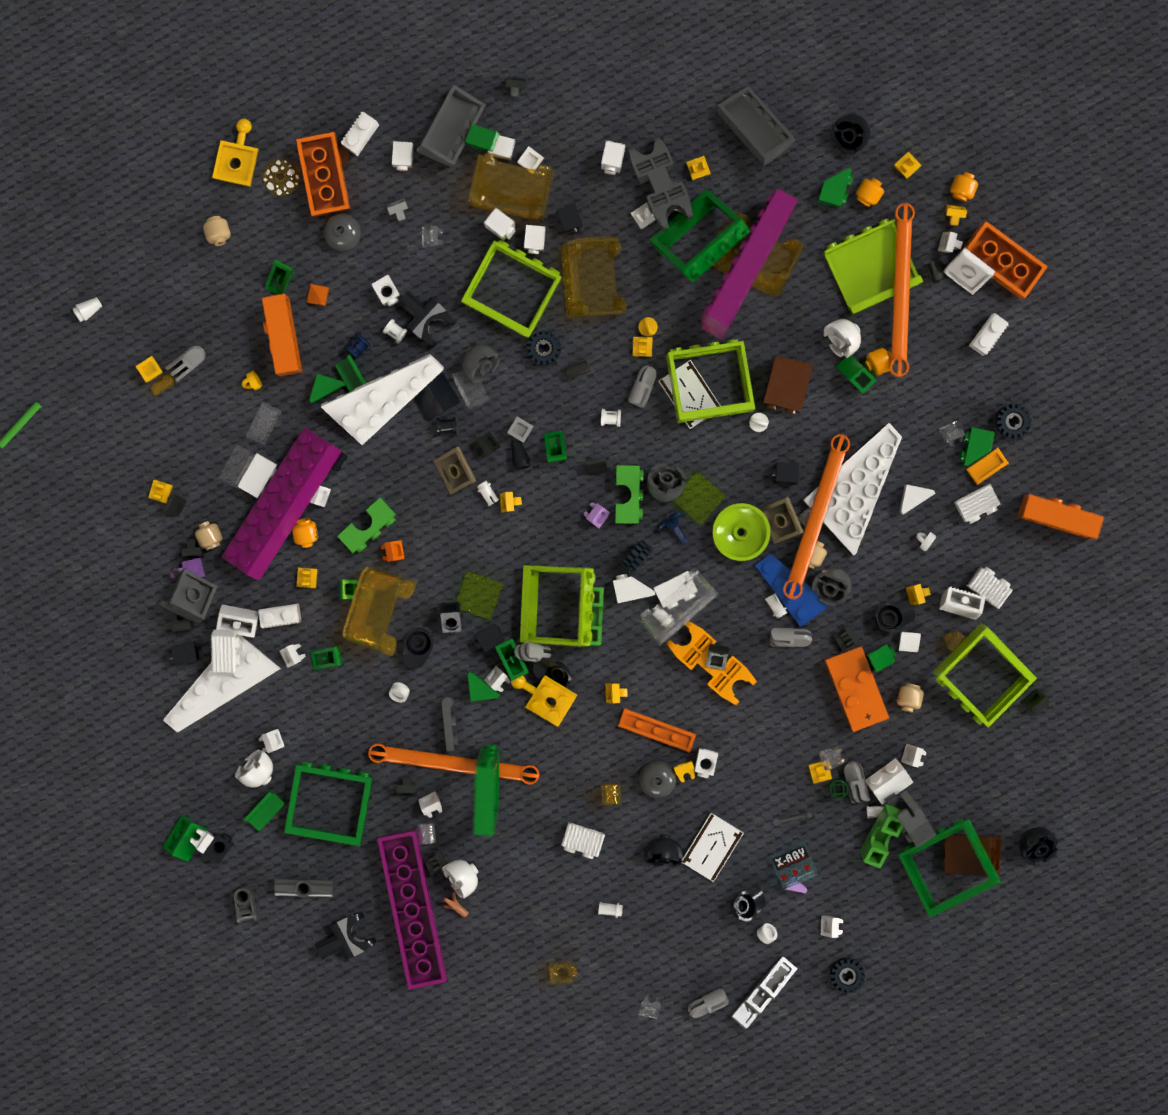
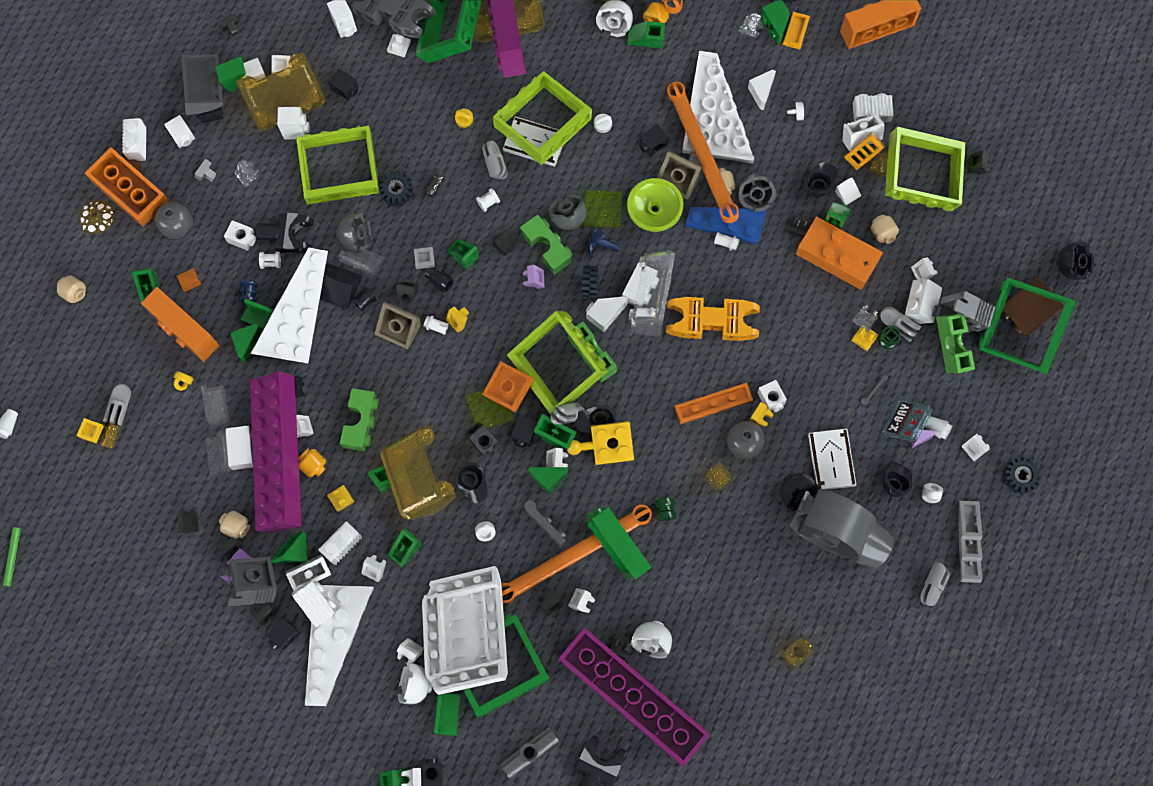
camera: 35 degrees left, 15 degrees down
(160, 491) = (168, 521): yellow tile -> none
(229, 151) = (41, 224): yellow plate -> none
(239, 592) = (293, 550): none -> green slope
(322, 762) = (464, 631): none -> white slope
(394, 551) = (394, 422): orange tile -> none
(426, 833) = (596, 626): clear beam -> none
(454, 905) = (667, 669): nougat bar -> none
(504, 592) = (508, 386): none -> orange tile
(534, 239) = (327, 117): white brick -> none
(551, 785) = (665, 510): none -> dark green wheel
(582, 840) = (726, 532): white brick -> none
(591, 277) = (390, 112): clear yellow windscreen -> none
(610, 909) = (794, 571): white pin -> none
(613, 693) = (656, 398): yellow tile -> none
(642, 346) = (471, 134): yellow tile -> none
(650, 1009) = (892, 626): clear tile -> none
(670, 912) = (842, 528): none -> dark grey animal
(717, 656) = (714, 308): pearl dark grey slope -> none
(787, 384) = (601, 76): reddish brown slope -> none
(790, 637) = (757, 255): light grey arm -> none
(815, 888) = (941, 427): none -> white cone
(874, 811) = (932, 334): white pin -> none
(917, 594) = (823, 152): yellow tile -> none
(961, 616) = (870, 137): none -> light orange slope
(977, 503) = (811, 58): white brick -> none

